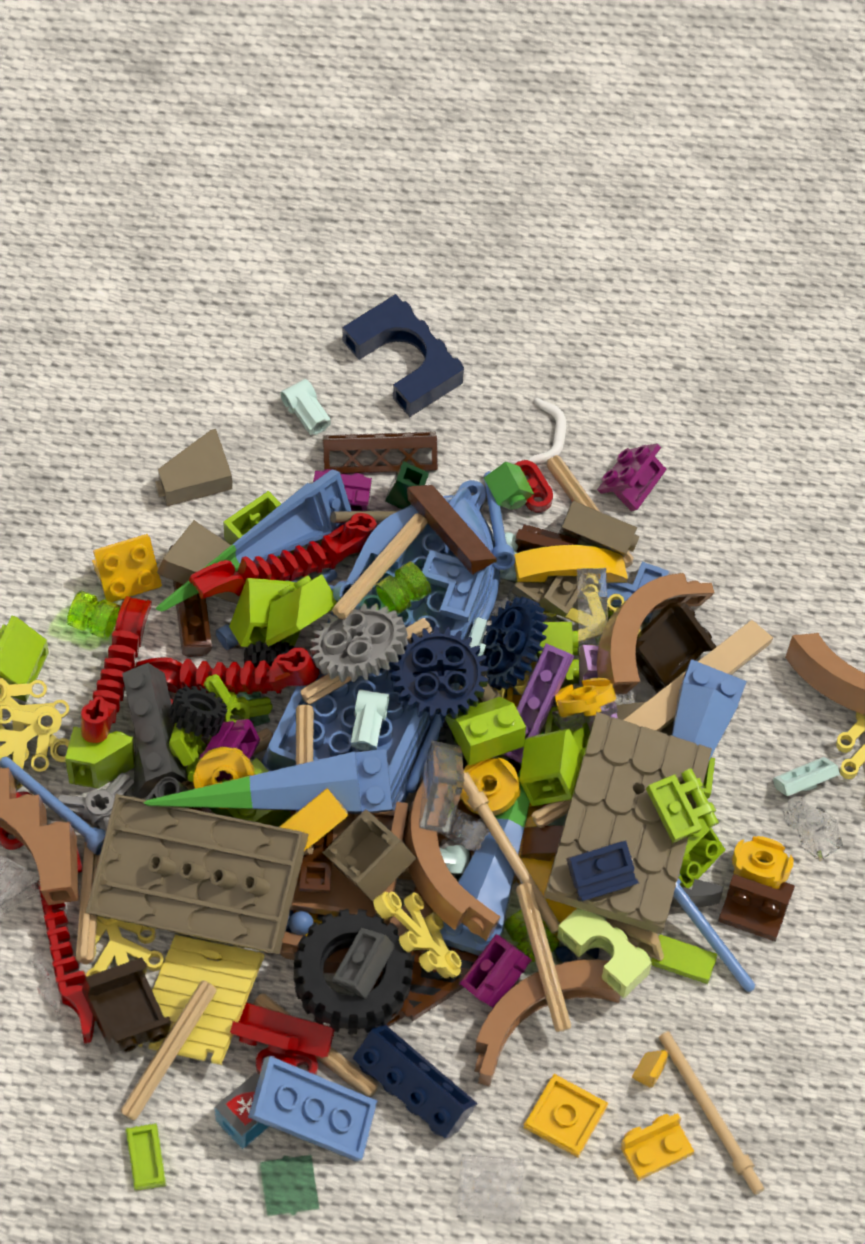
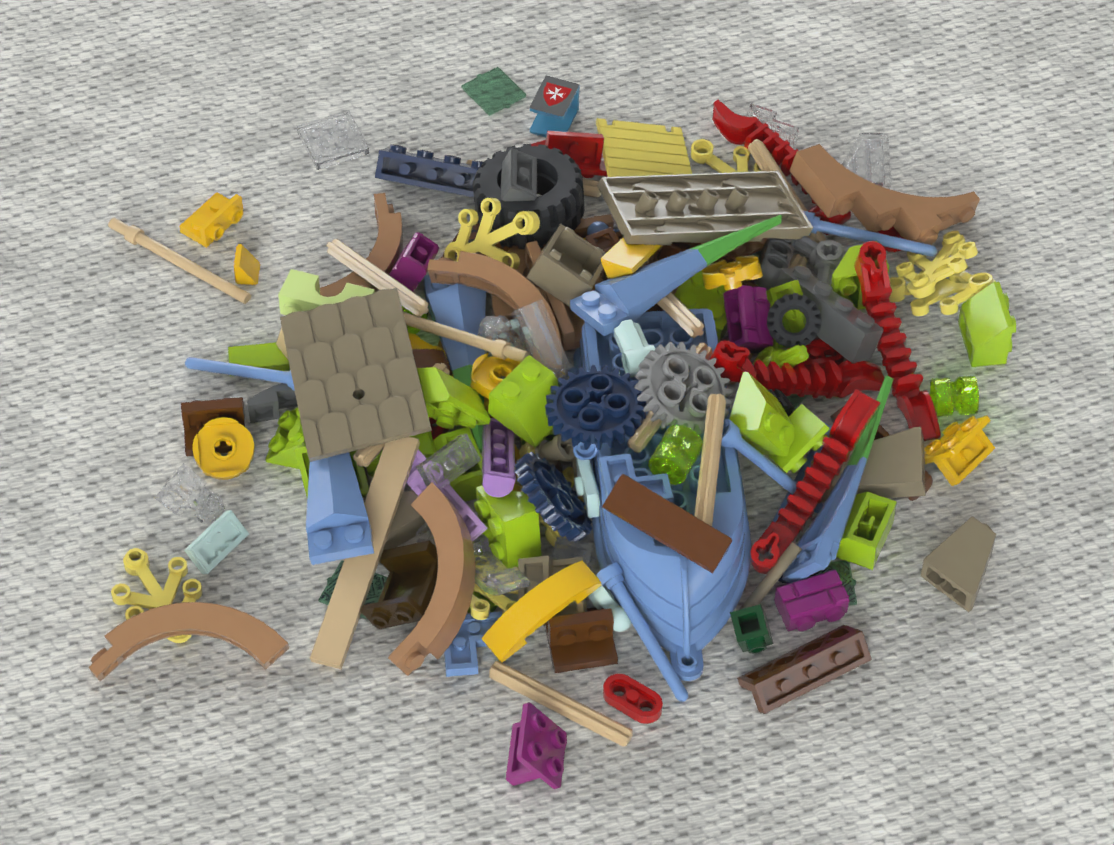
camera: 155 degrees right, 10 degrees down
(125, 1007) = (694, 122): dark brown panel -> none
(145, 1157) = (615, 64): lime tile -> none
(168, 1050) = (643, 116): tan axle -> none
(303, 402) = (914, 678): light aqua piece -> none
(312, 1108) = (502, 114): medium blue plate -> none
(396, 322) = (875, 802): dark blue arch -> none
(509, 486) = (651, 670): bright green brick -> none
(559, 435) = (639, 774): white animal -> none
(565, 1115) = (300, 213): yellow tile -> none
(585, 699) = (437, 464): yellow plate -> none
(599, 529) = (538, 660): dark tan slope -> none
(602, 870) = (354, 310): dark blue plate -> none
(674, 808) = (316, 383): lime plate -> none

